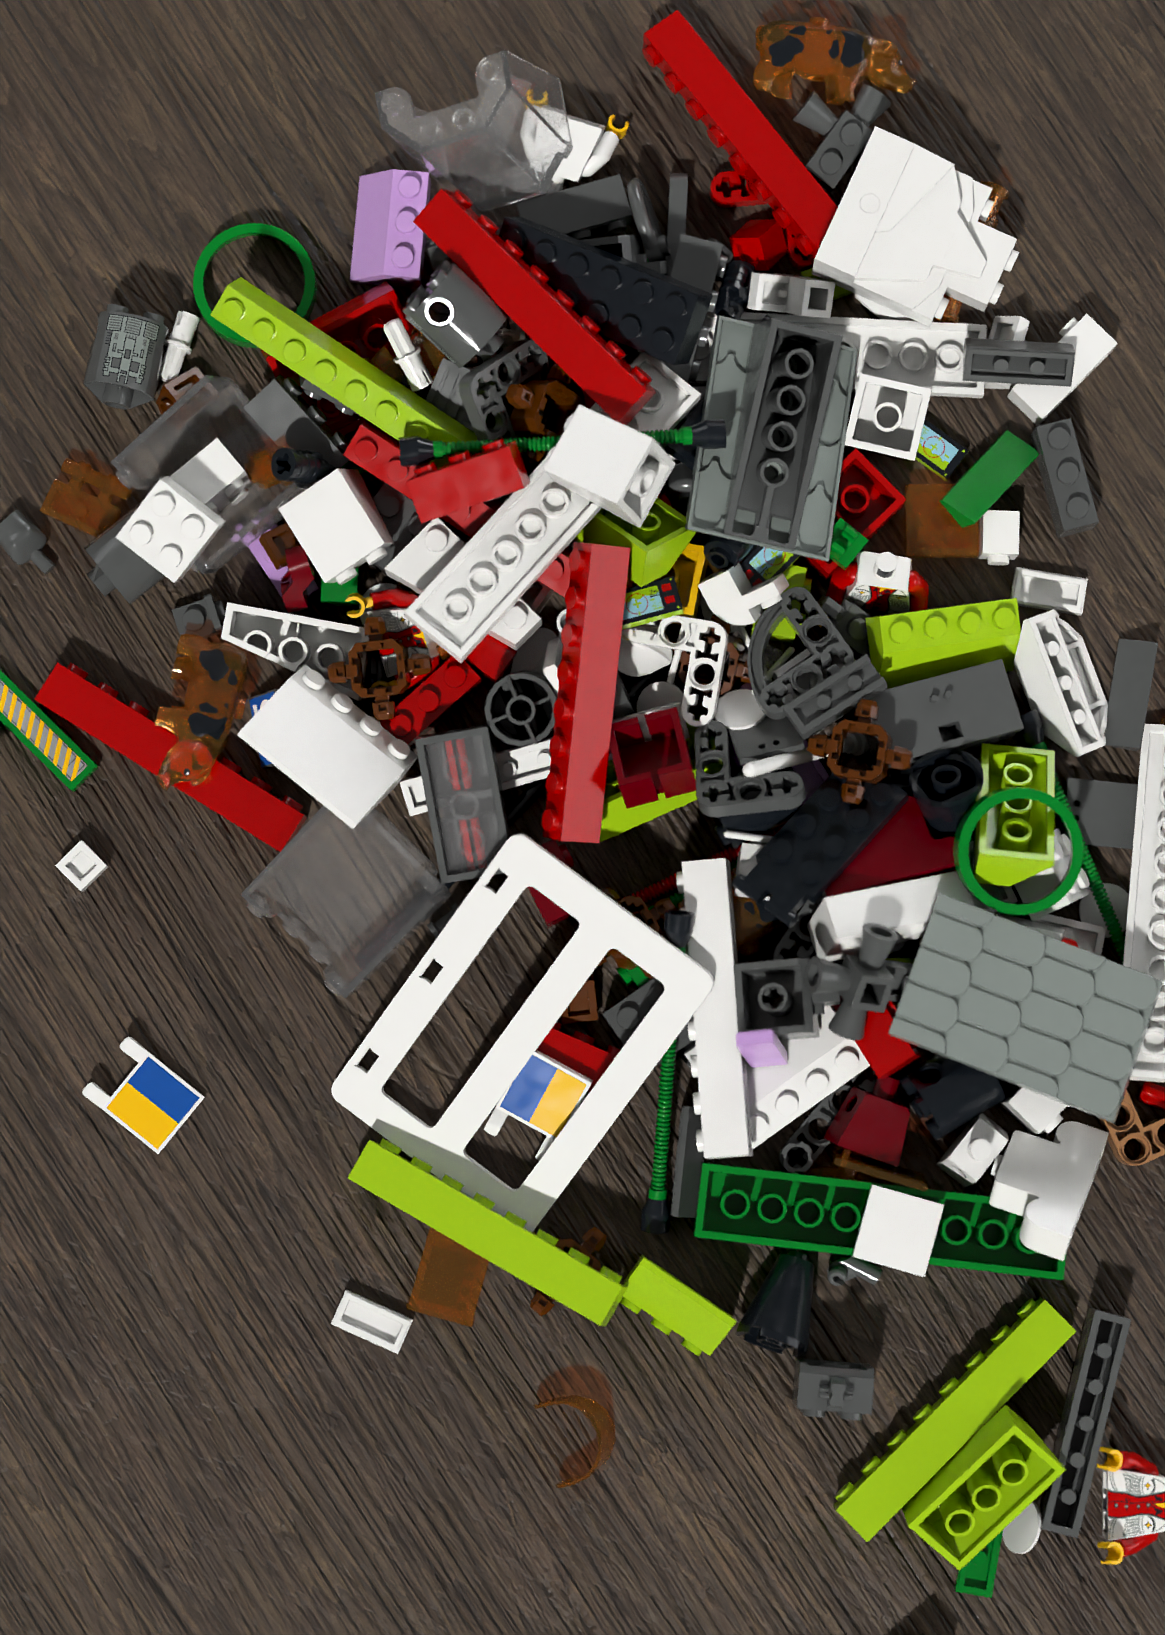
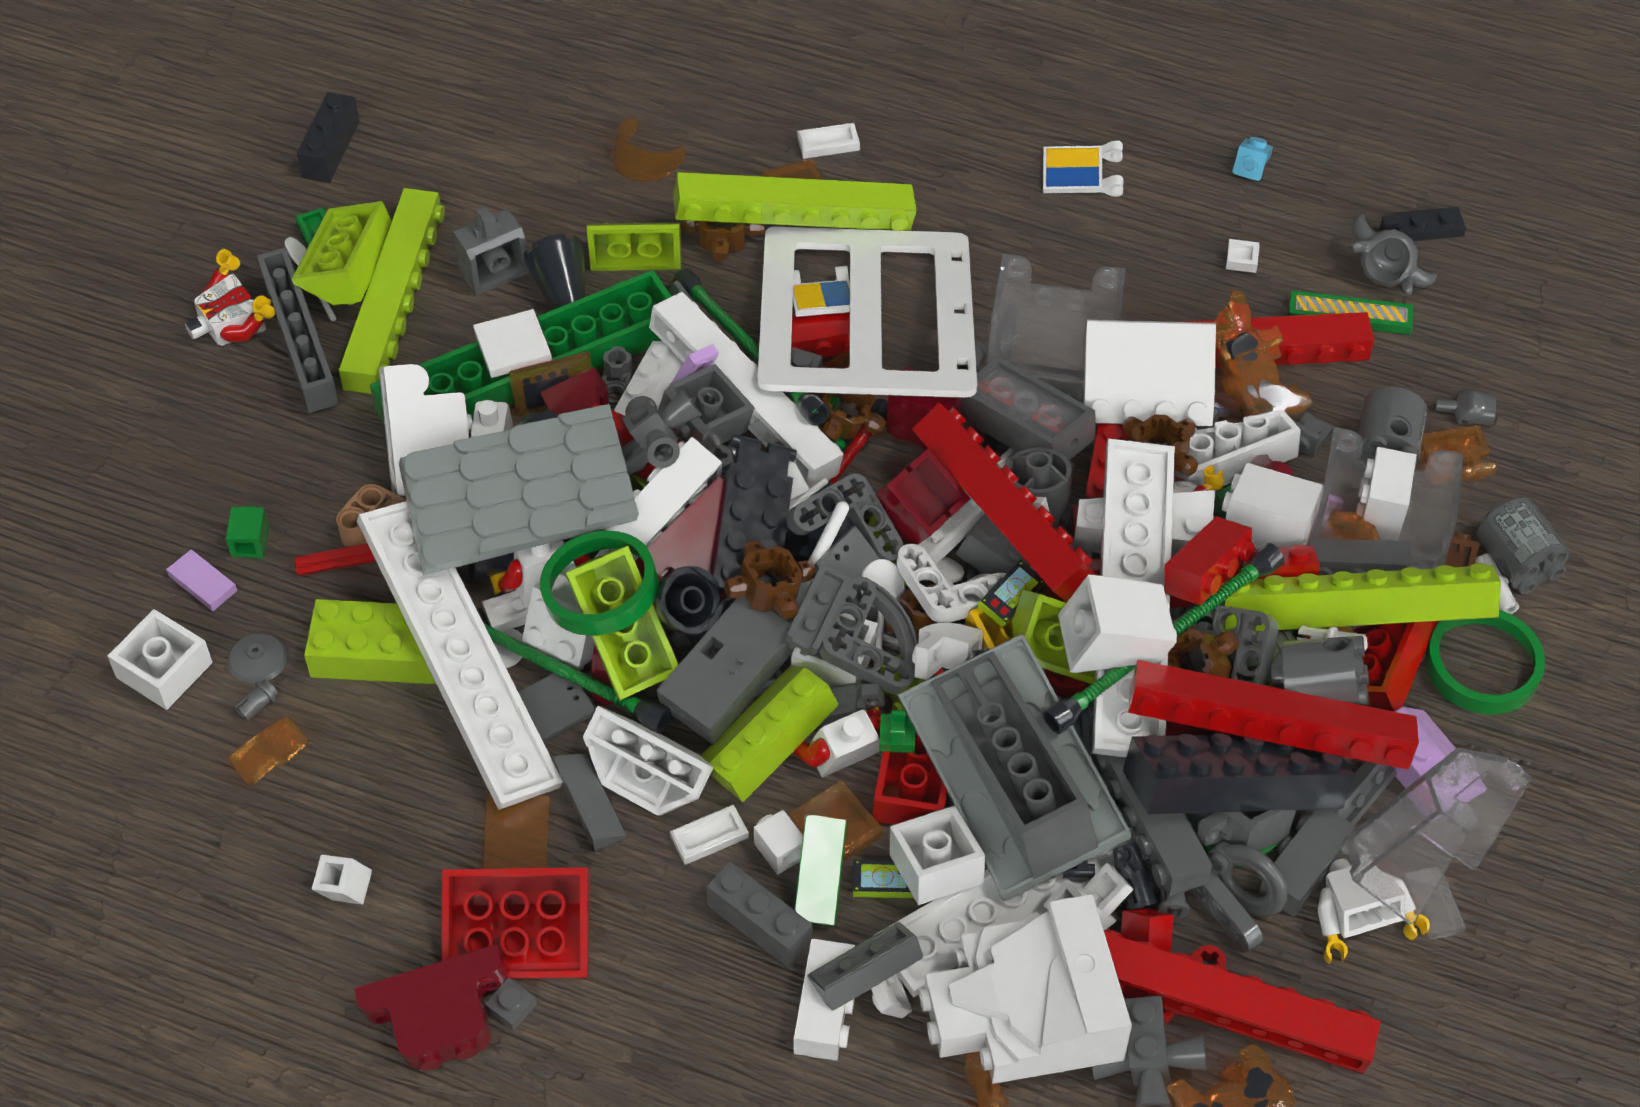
camera: 145 degrees right, 30 degrees down
(170, 529) = (1381, 422): white brick -> none
(299, 466) = (1332, 519): black hinge -> none

